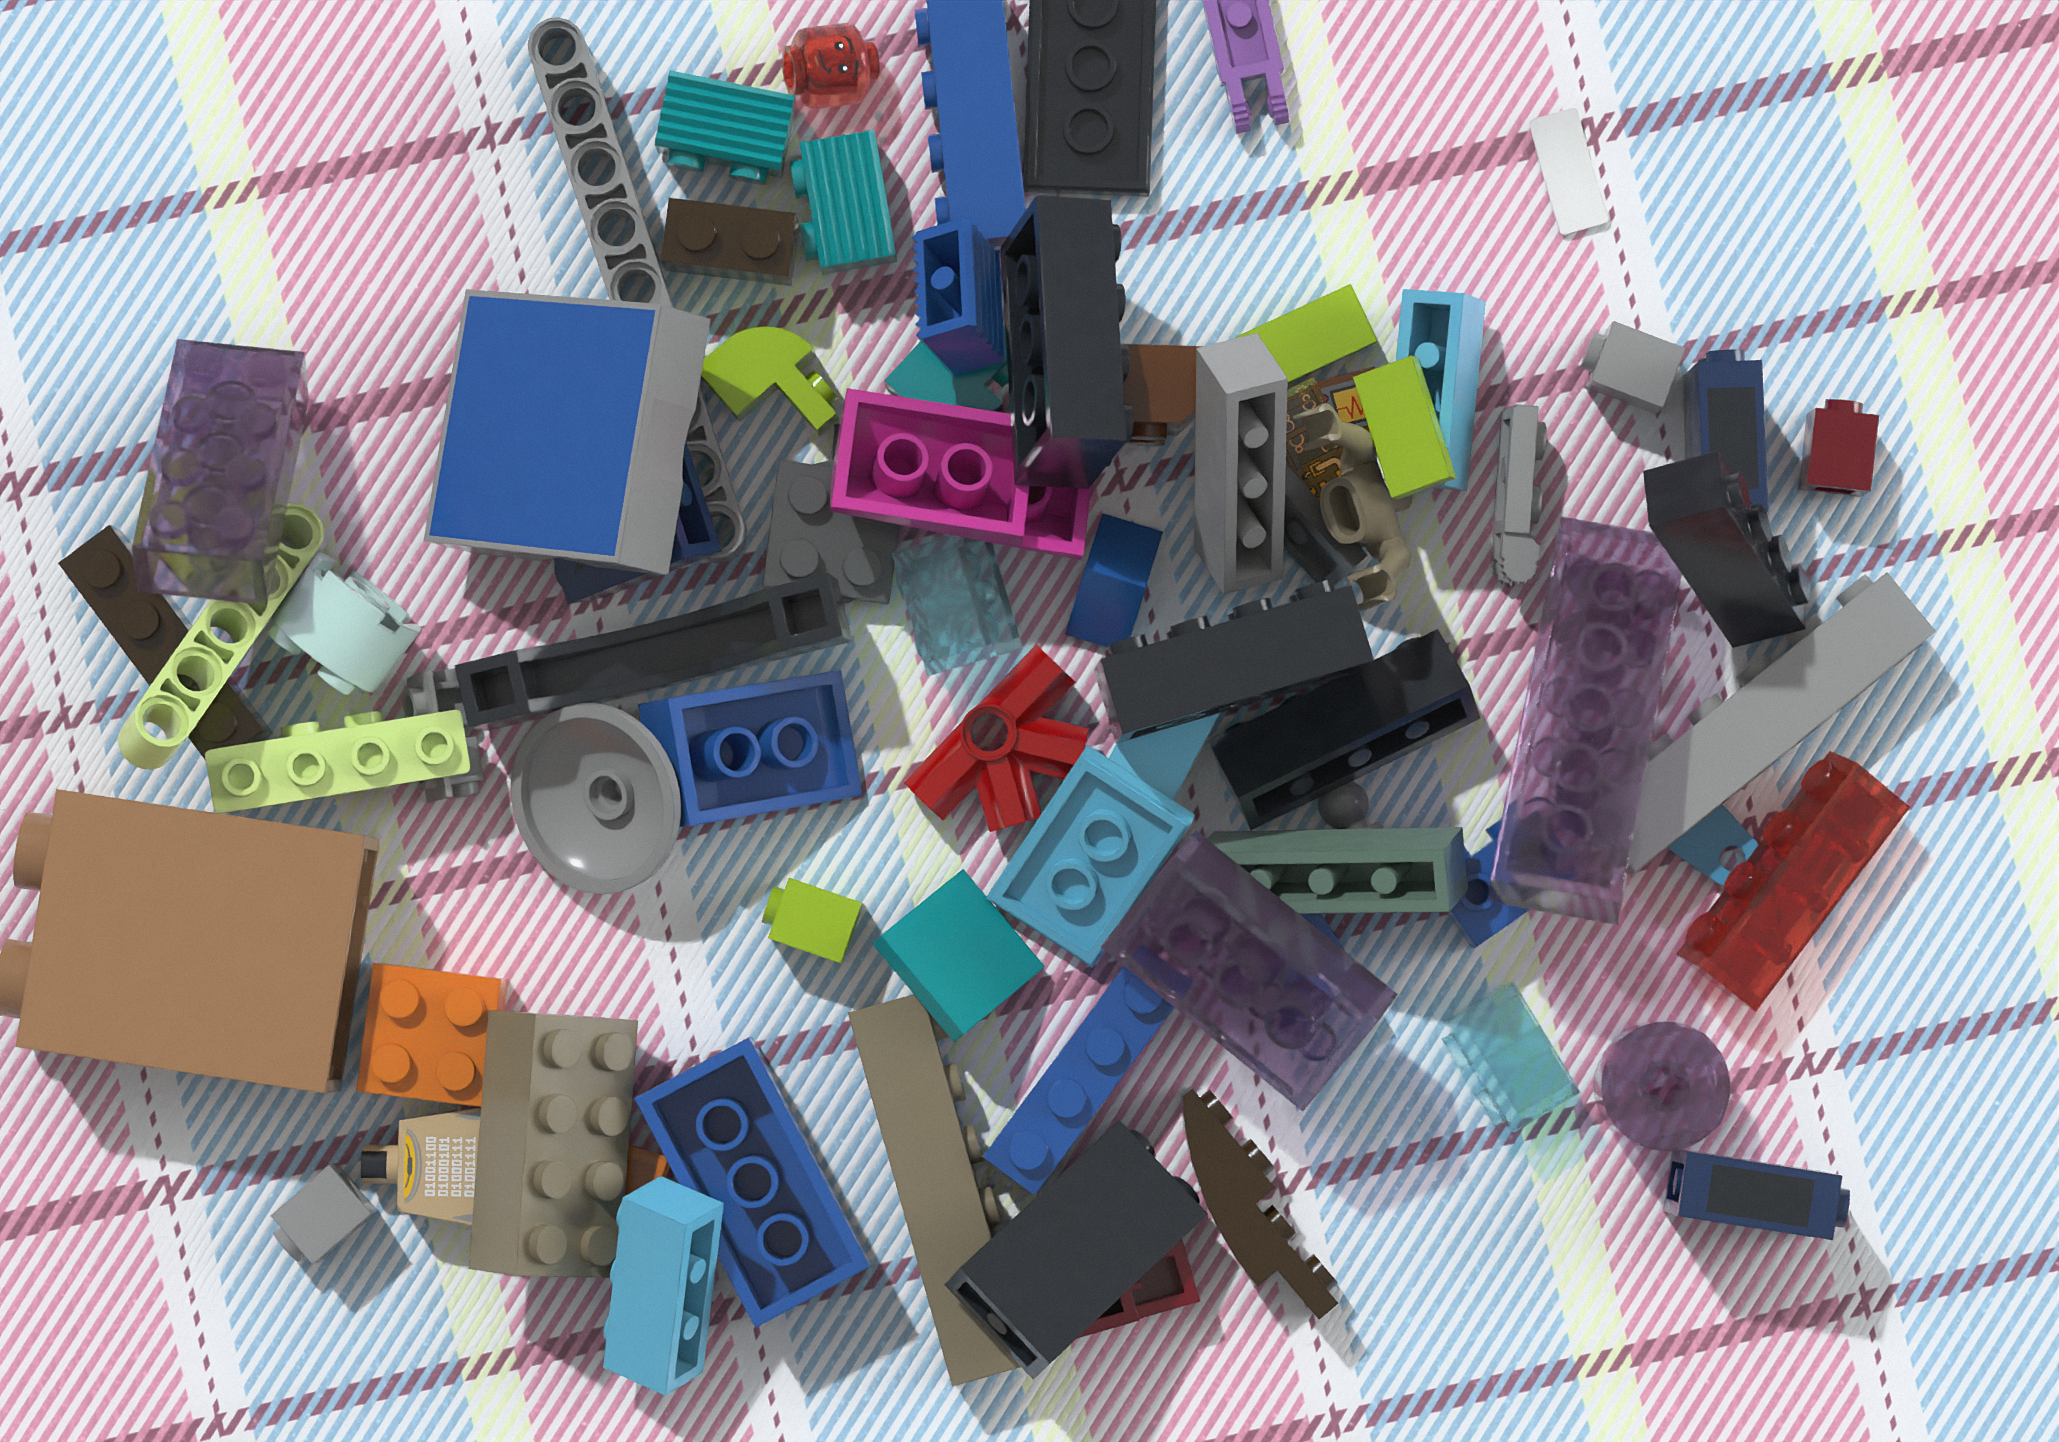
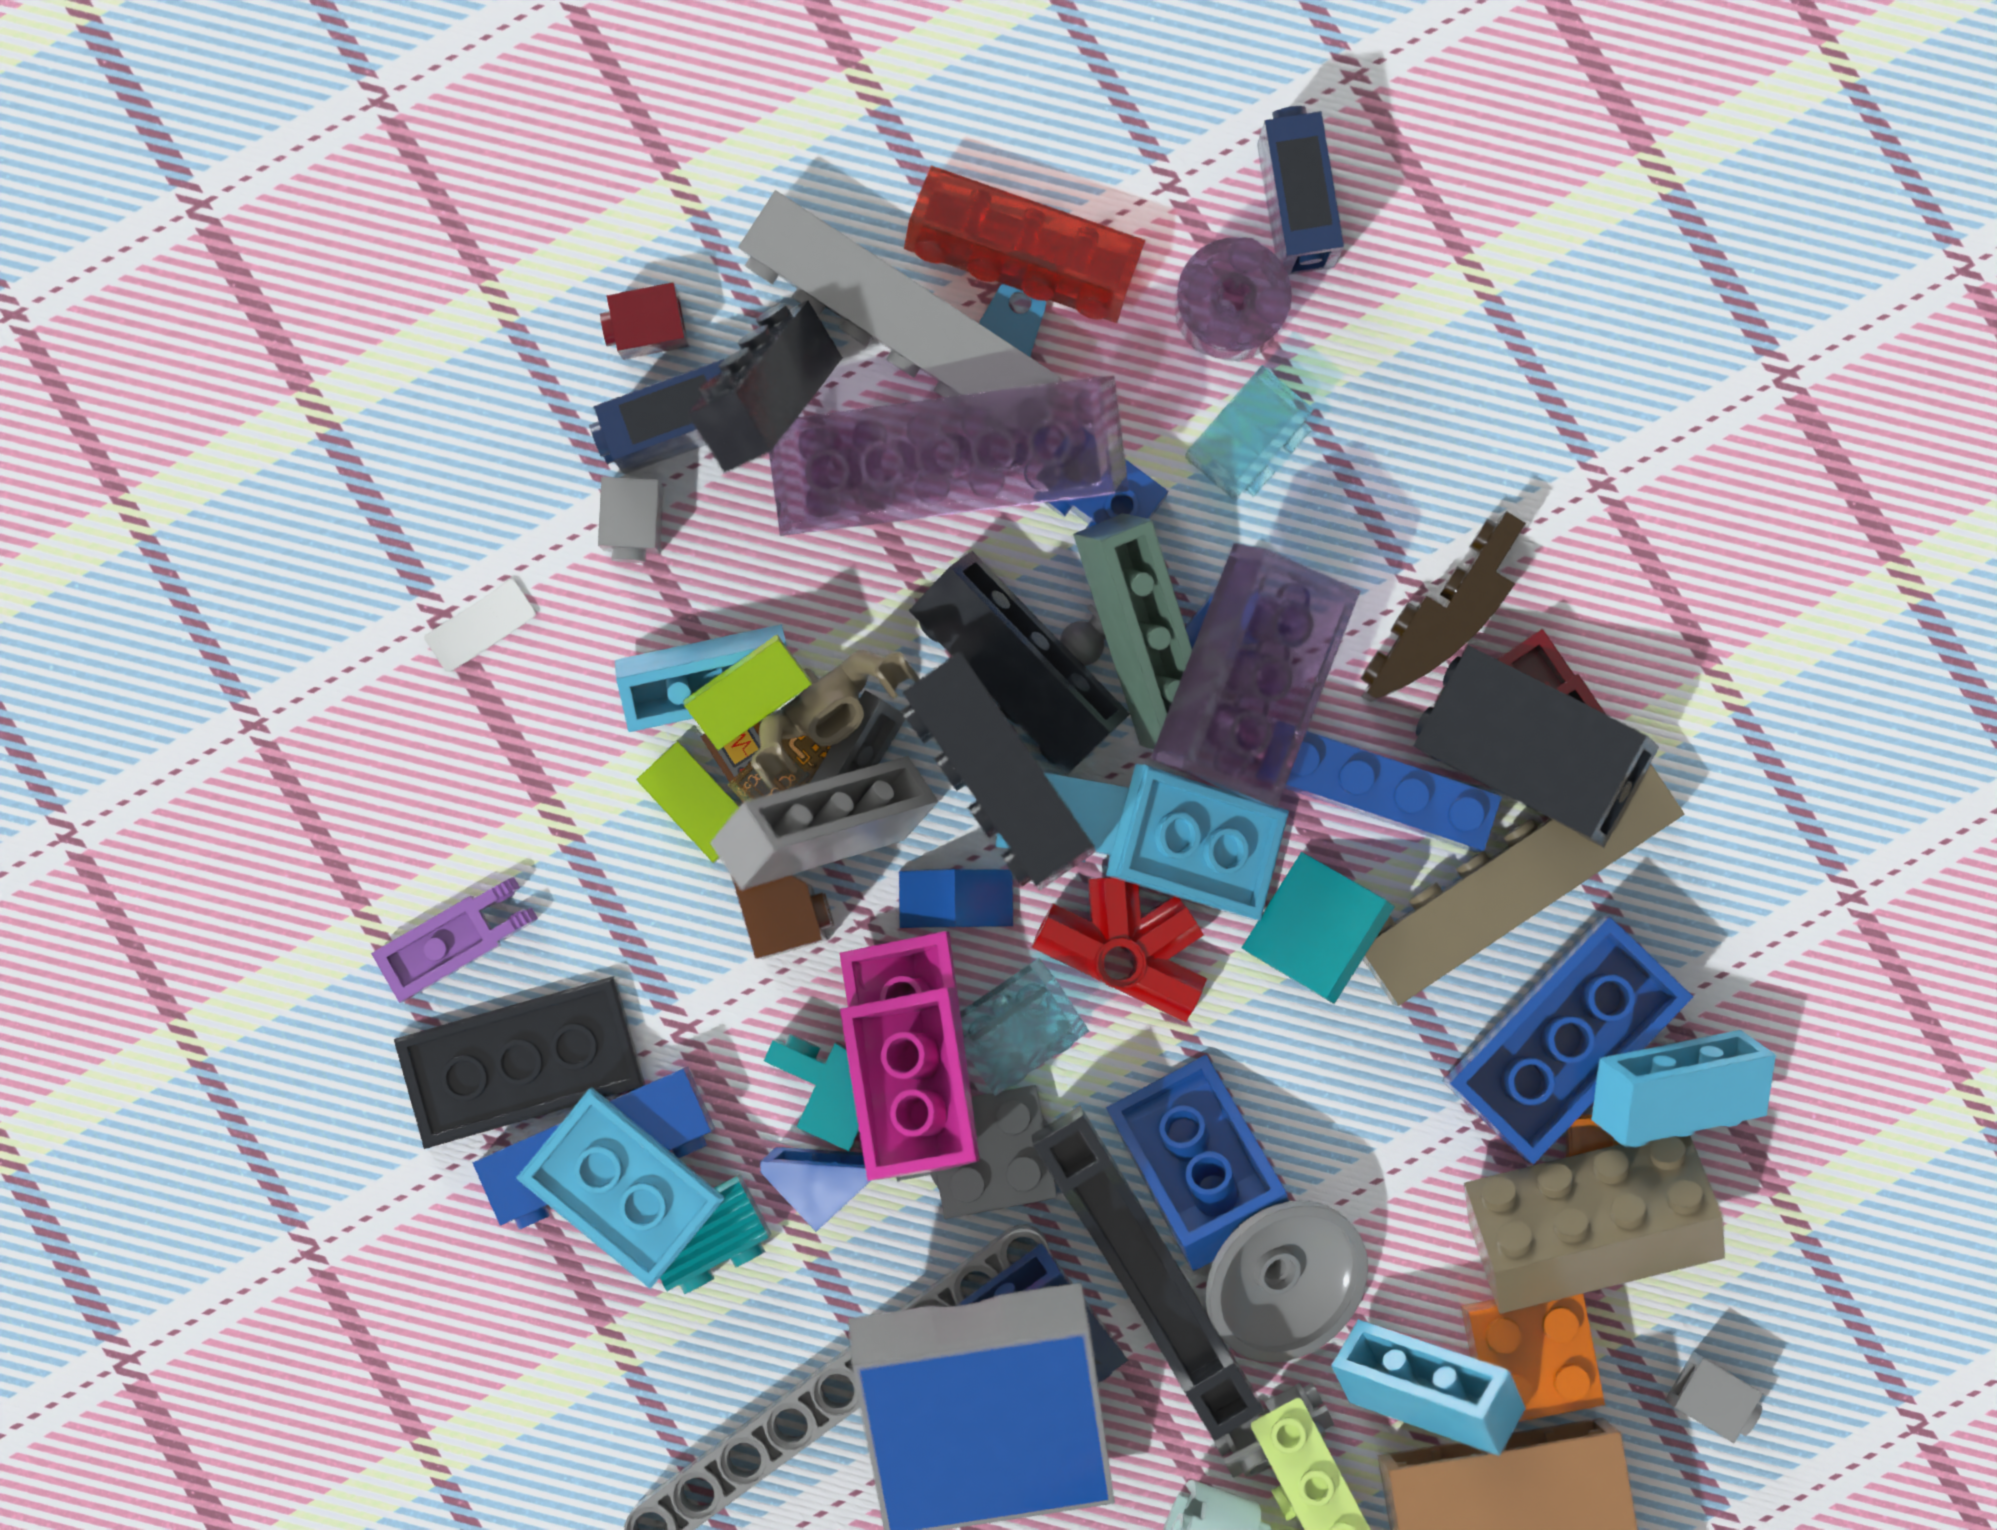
camera: 105 degrees left, 0 degrees up
(430, 1165) = (1643, 1321): tan torso -> none
(437, 909) = (1429, 1387): none -> medium azure brick
(725, 126) = (672, 1360): teal brick -> none
(730, 241) = (770, 1323): dark brown brick -> none
(760, 362) = (865, 1262): lime brick -> none
(812, 919) = (1327, 1062): lime brick -> none
(829, 65) = (590, 1287): clear red head -> none
(864, 335) = (815, 1180): none -> slope
(923, 128) = (620, 1188): none -> medium azure tile
(959, 296) = (756, 1110): blue brick -> none
(1065, 342) = (768, 1005): black brick -> none
(1516, 498) = (773, 580): light grey hinge -> none

